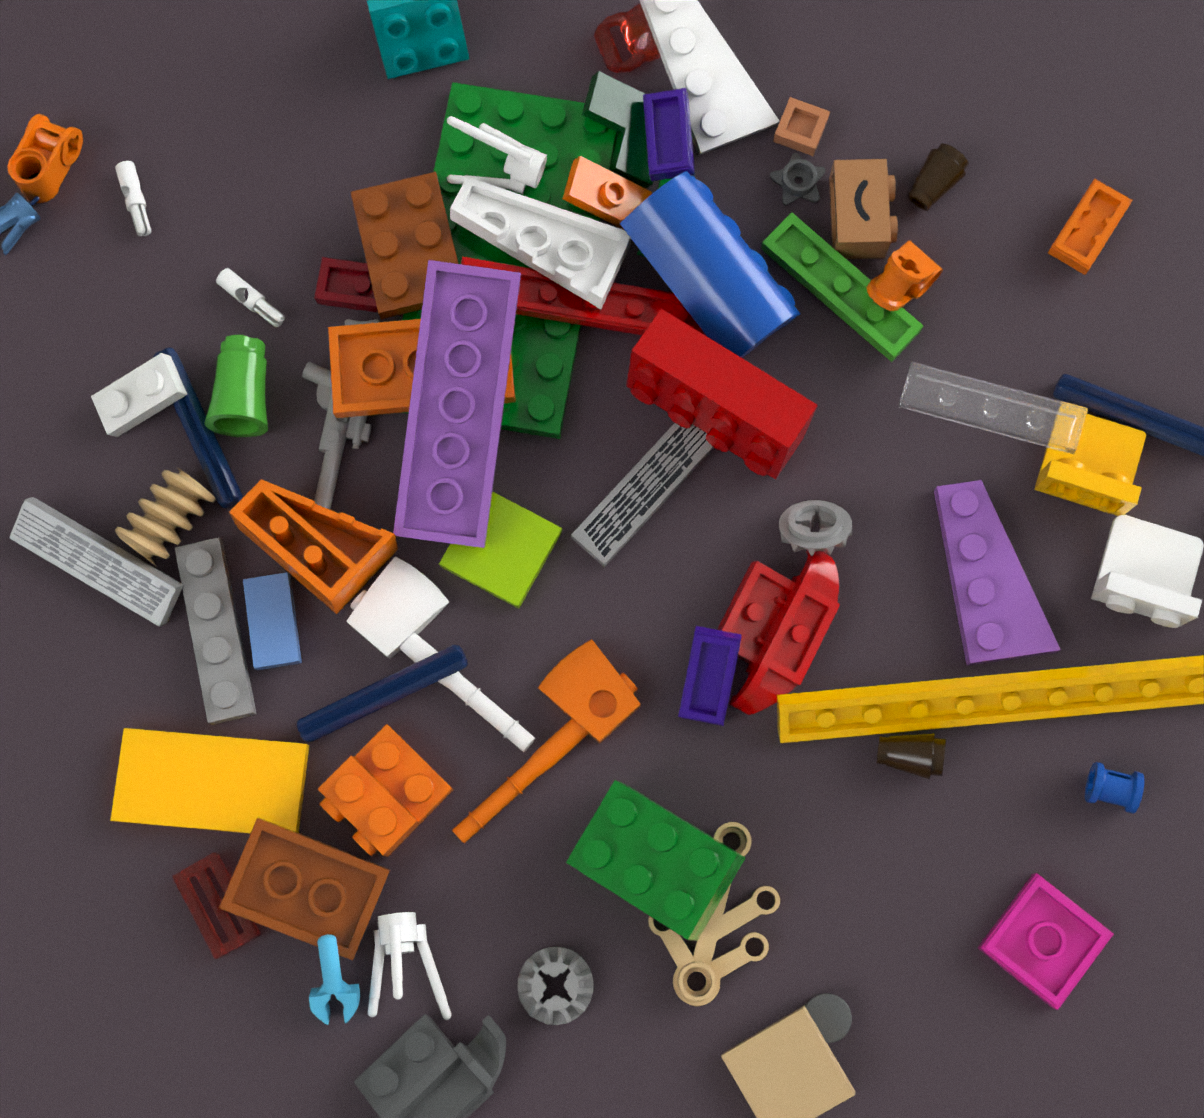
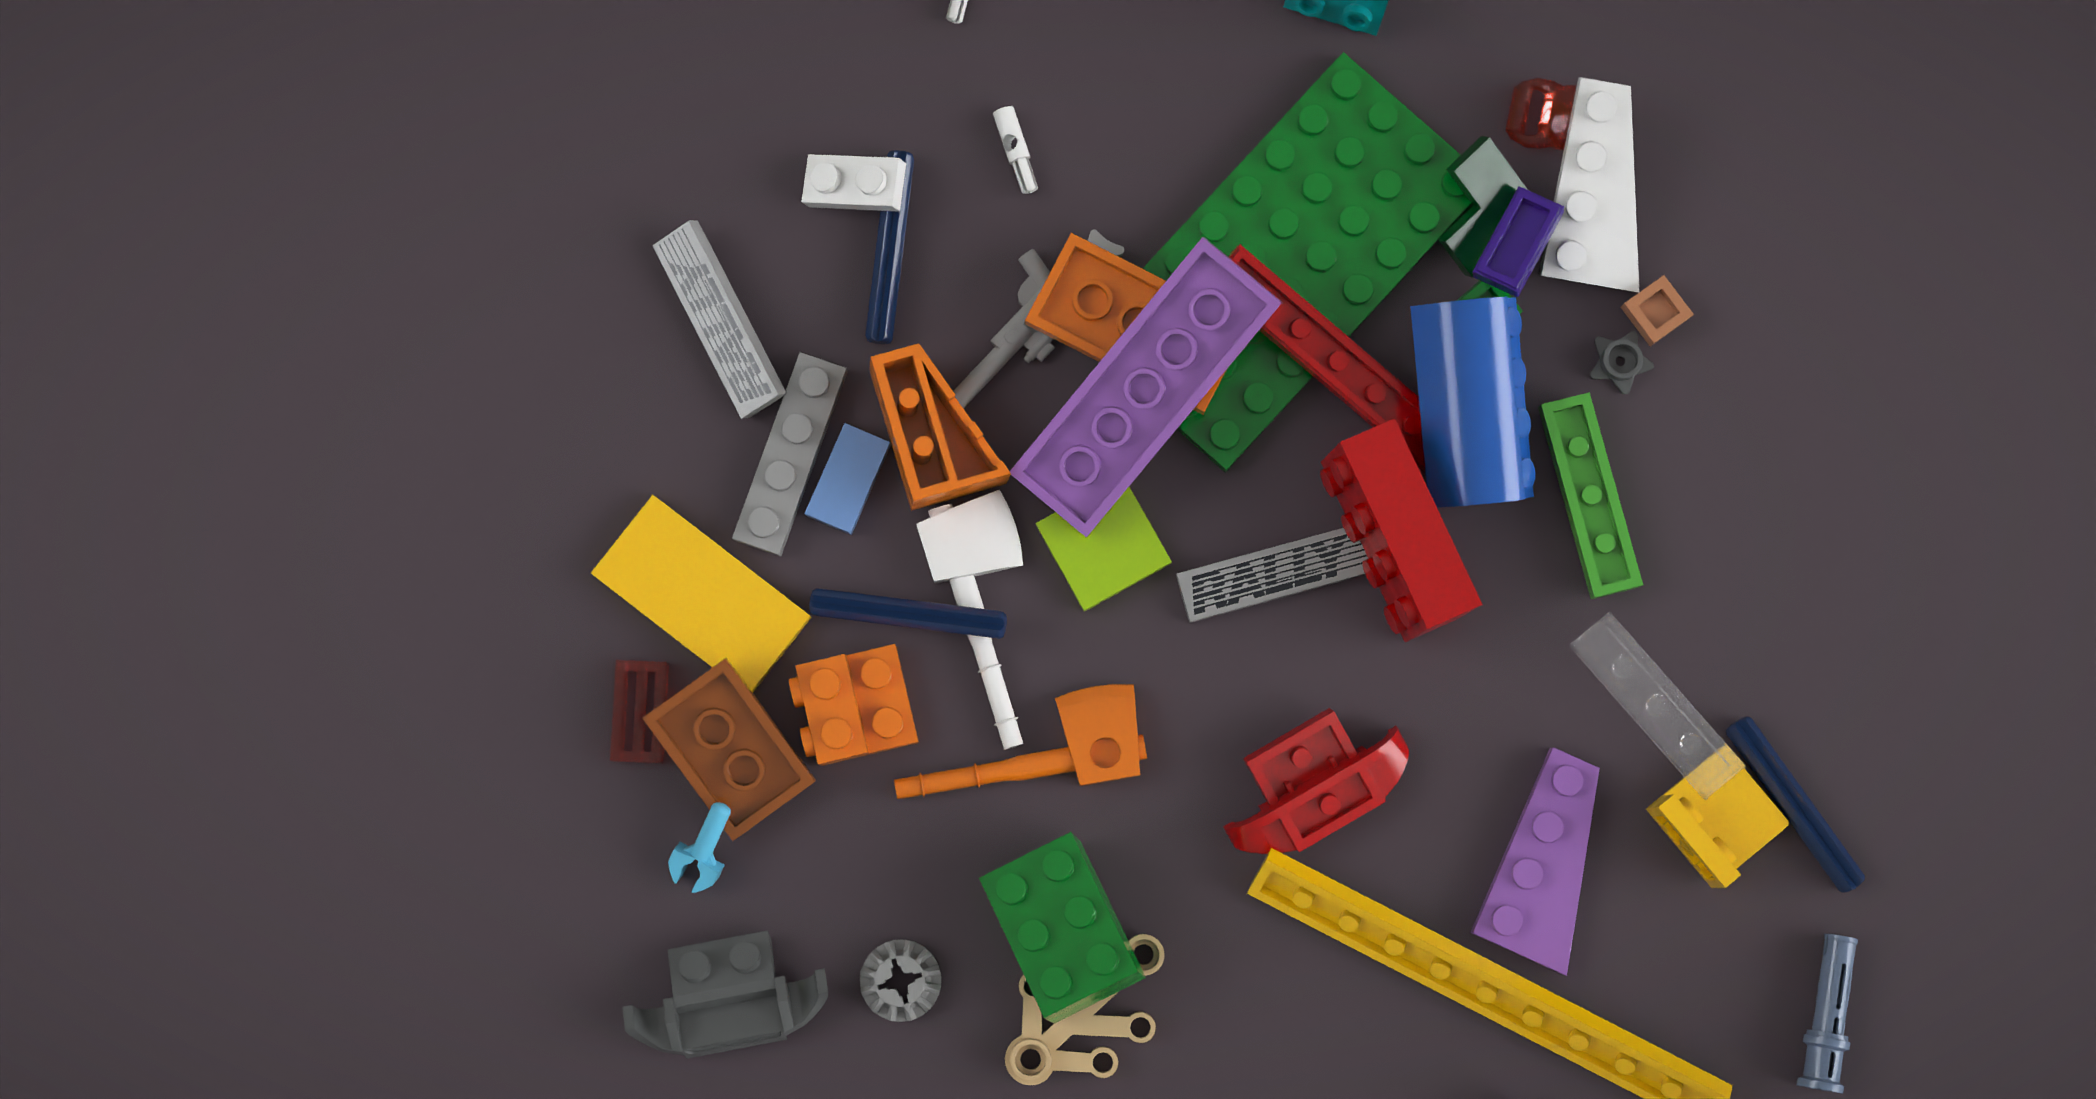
camera: 30 degrees right, 5 degrees up
(164, 515) = (809, 316): tan piece -> none
(239, 389) = (952, 236): bright green plant -> none
(345, 285) = (1129, 206): dark red plate -> none
(396, 937) = (785, 845): white plant -> none
(400, 231) = (1196, 189): dark orange plate -> none
(522, 162) = (1358, 183): white plant -> none
(551, 240) = (1336, 279): white wing -> none
(602, 191) = (1420, 261): orange plate -> none
(709, 675) = (1220, 789): dark purple tile -> none
(800, 518) = (1405, 694): light grey gear -> none
(861, 208) = (1660, 430): medium nougat brick -> none
(904, 277) = (1656, 526): orange piece -> none
(913, 754) = (1364, 983): dark brown cone -> none
(939, 174) = (1757, 444): dark brown cone -> none
(1089, 226) = (1873, 588): orange plate -> none
(1149, 572) = (1701, 956): white bracket -> none

